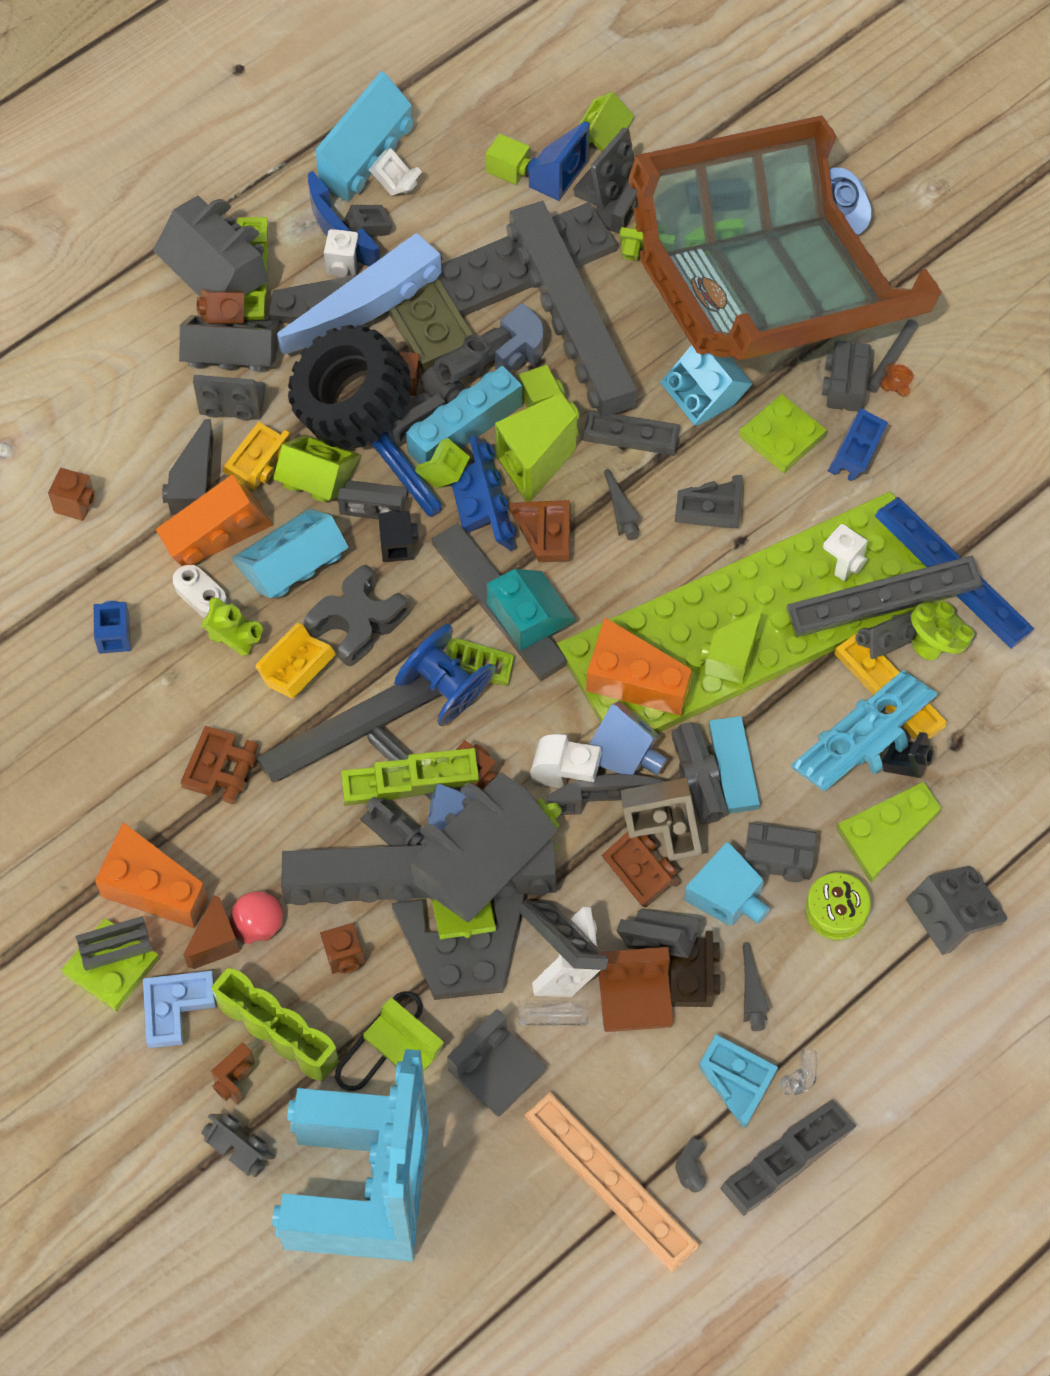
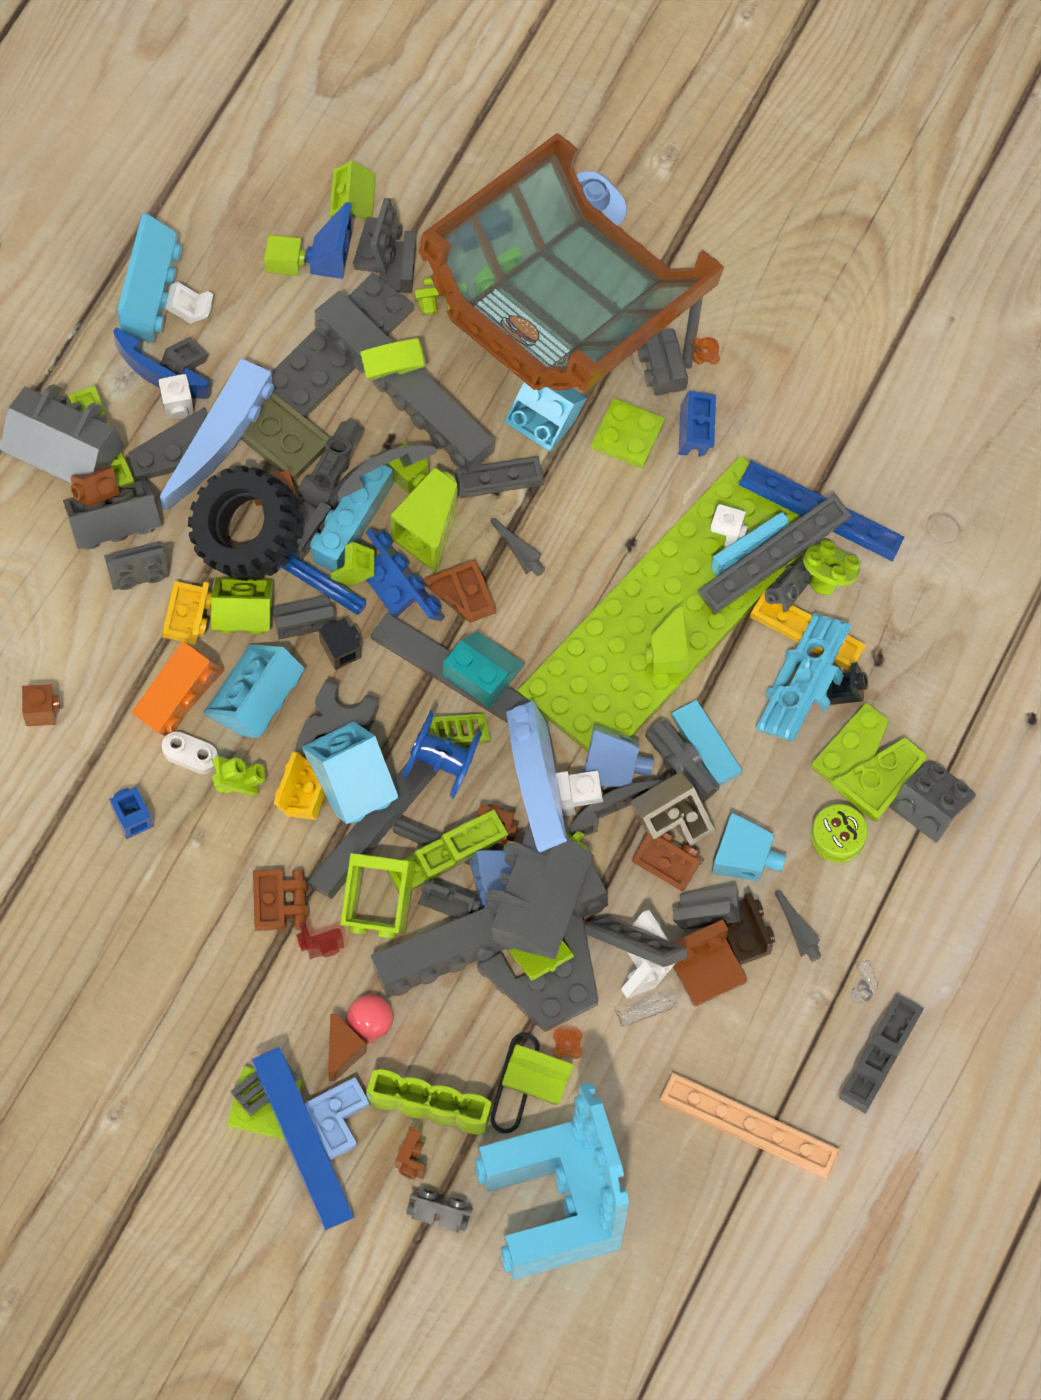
camera: 25 degrees left, 5 degrees up
(126, 1013) = (302, 1138): none -> blue tile
(150, 880) = (268, 1020): orange wedge -> none
(192, 471) = (136, 654): dark grey slope -> none
(240, 824) = (323, 944): none -> clear red bracket
(296, 778) = (352, 893): none -> lime window
(343, 949) = (453, 1018): dark orange bracket -> none
(344, 662) = (351, 772): none -> medium azure slope
(451, 1010) = (572, 1036): none -> clear orange plate
(495, 1064) = (621, 1067): dark grey bracket -> none
(525, 340) = (374, 420): sand blue brick -> none
(531, 726) = (536, 774): none -> light blue slope
(543, 375) = (351, 482): none -> dark grey slope
(565, 276) = (393, 358): none -> lime slope
(636, 671) = (599, 693): orange wedge -> none
(687, 1166) = (806, 1091): dark grey arm -> none
(710, 504) = (595, 519): dark grey wing -> none
(737, 1077) = (815, 1004): medium azure wing -> none
(780, 851) = (775, 804): dark grey brick -> none
(860, 574) = (747, 544): none -> medium azure tile
(901, 866) = (879, 780): none -> lime wing

